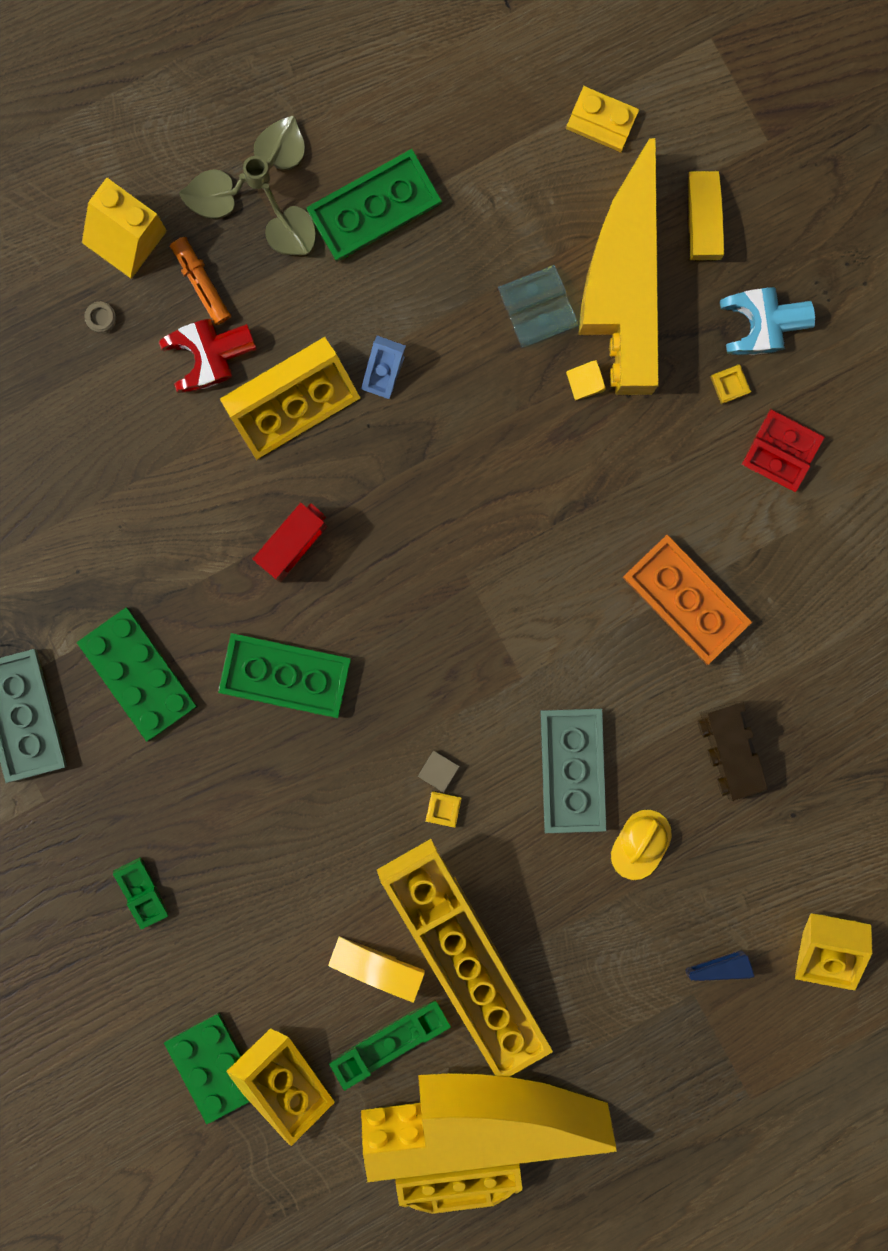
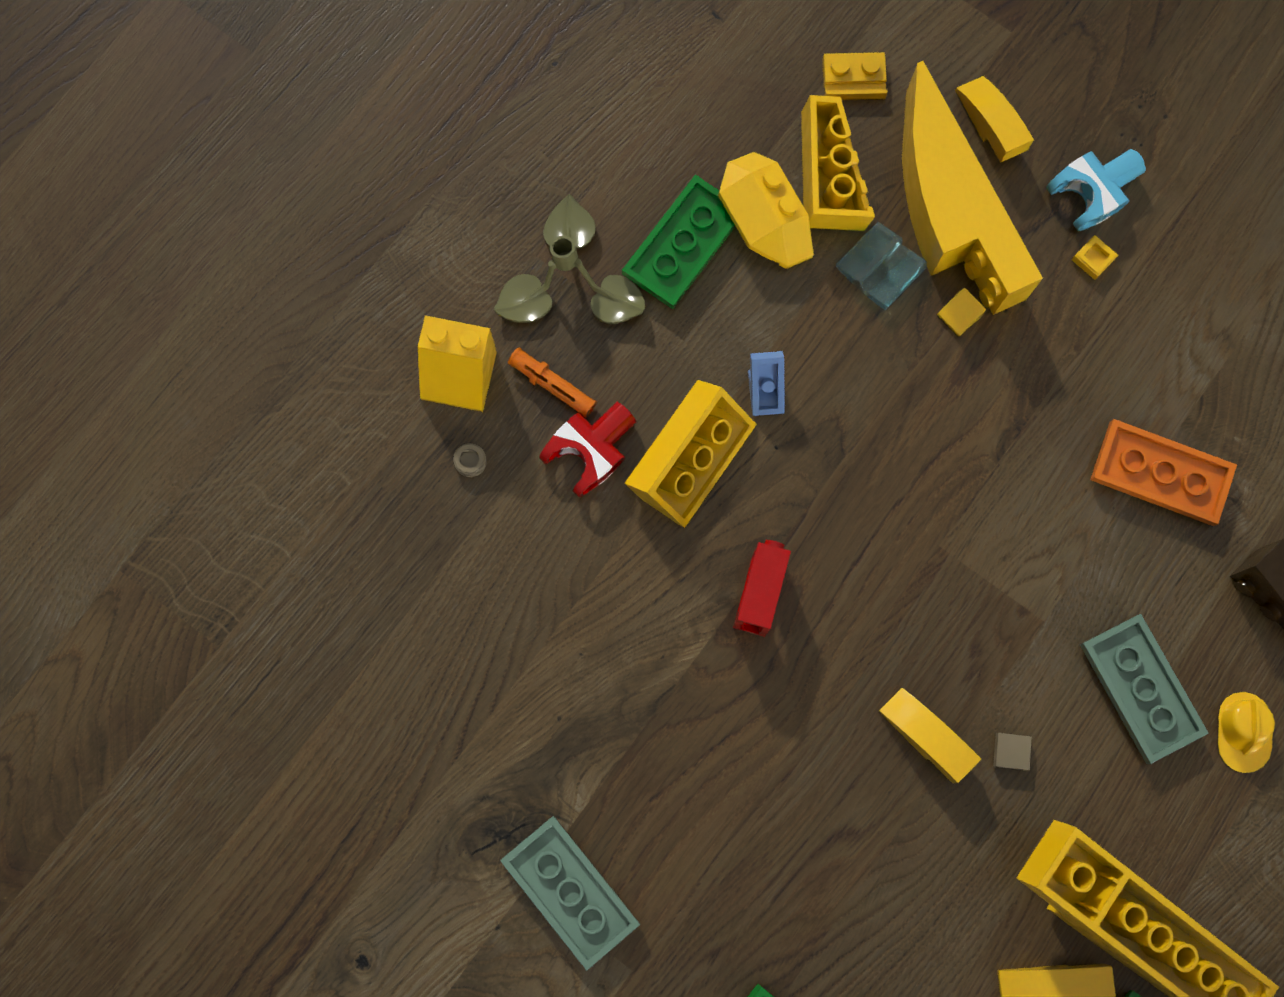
camera: 20 degrees left, 10 degrees down
(137, 674) = (667, 794): green plate -> none
(284, 675) = (815, 726): green plate -> none
(374, 726) = (930, 736): none -> yellow slope
(443, 809) = (1036, 788): yellow tile -> none
(457, 209) = (766, 210): none -> yellow wedge
(530, 206) = (831, 176): none -> yellow wedge
(783, 450) = (1175, 294): red slope -> none

